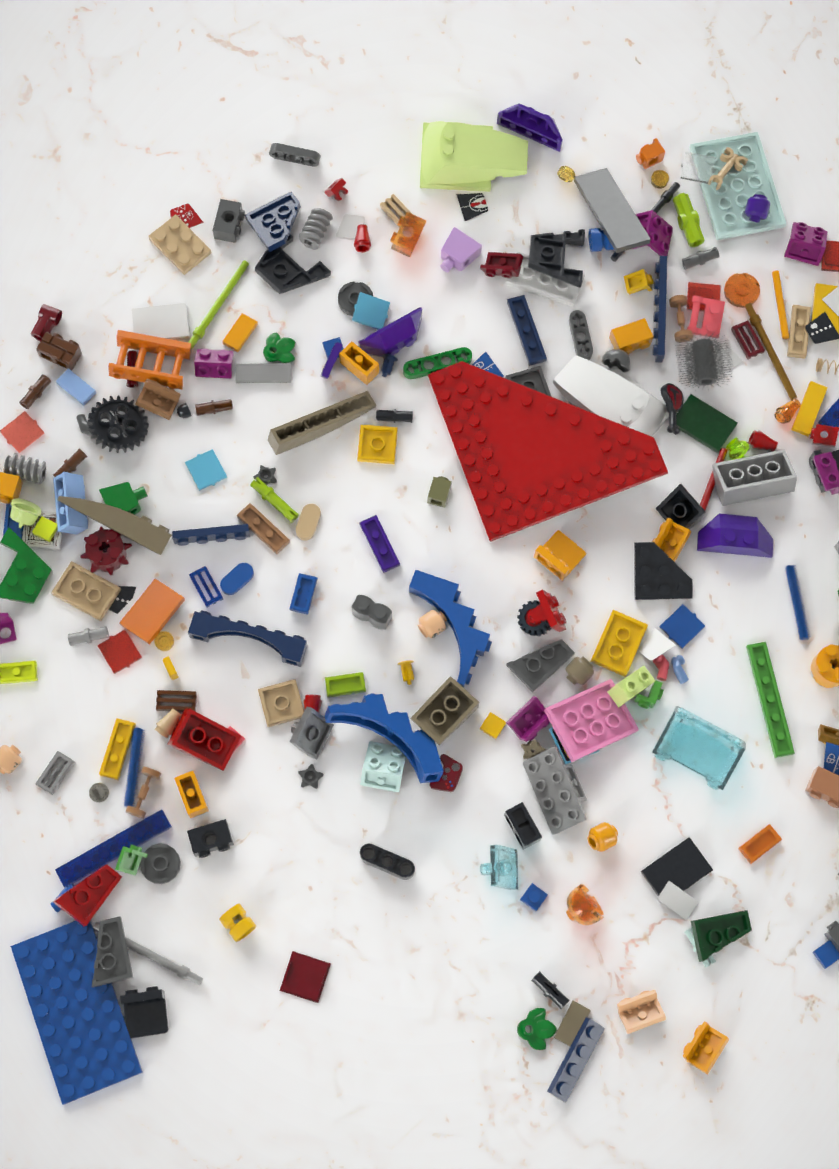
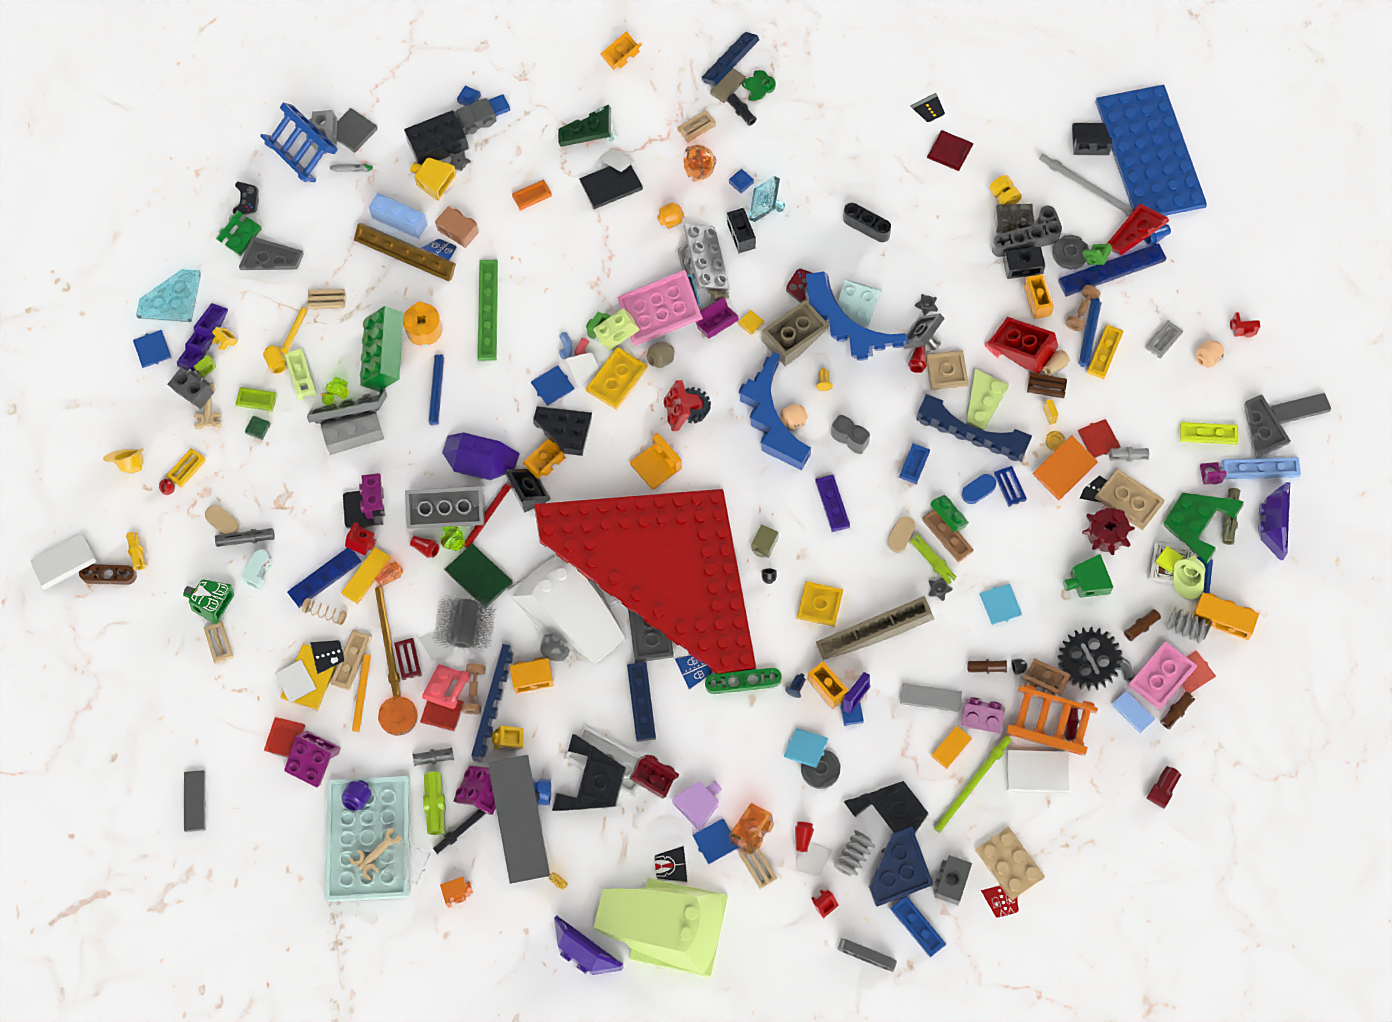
camera: 165 degrees left, 5 degrees down
(49, 420) = (1162, 675): none -> bright pink plate
(59, 351) = (1150, 751): reddish brown brick -> none
(67, 518) = (1142, 580): light blue brick -> none
(99, 792) = (1124, 316): clear smoke plate -> none
(112, 954) = (1117, 181): dark grey wing -> none
(127, 524) = (1095, 546): dark tan slope -> none
(211, 872) = (1006, 241): none -> dark grey beam
(217, 534) = (999, 532): dark blue plate -> none
(226, 897) = (1013, 214): none -> clear smoke brick
(238, 677) = (984, 399): none -> yellowish green wing
(253, 184) = (918, 926): none -> blue tile
(263, 546) = (949, 513): none -> green plate
(281, 347) = (909, 724): green plate -> none
(335, 1032) = (929, 108): none -> black sticker
(345, 684) = (884, 378): lime tile -> none
(393, 415) = (798, 629): black axle -> none
(394, 336) = (785, 713): dark purple wedge -> none
(429, 464) = (769, 575): none -> black hinge
(438, 228) = (714, 841): none -> blue piece
(538, 666) = (696, 366): dark grey wing -> none
(583, 328) = (589, 675): dark grey beam -> none
(585, 975) = (699, 128): none -> tan tile
(640, 1011) = (668, 82): light nougat bracket -> none
(659, 179) = (452, 863): clear yellow tile -> none
(674, 401) = (505, 599): black piece -> none
(700, 747) = (560, 276): clear light blue windscreen -> none

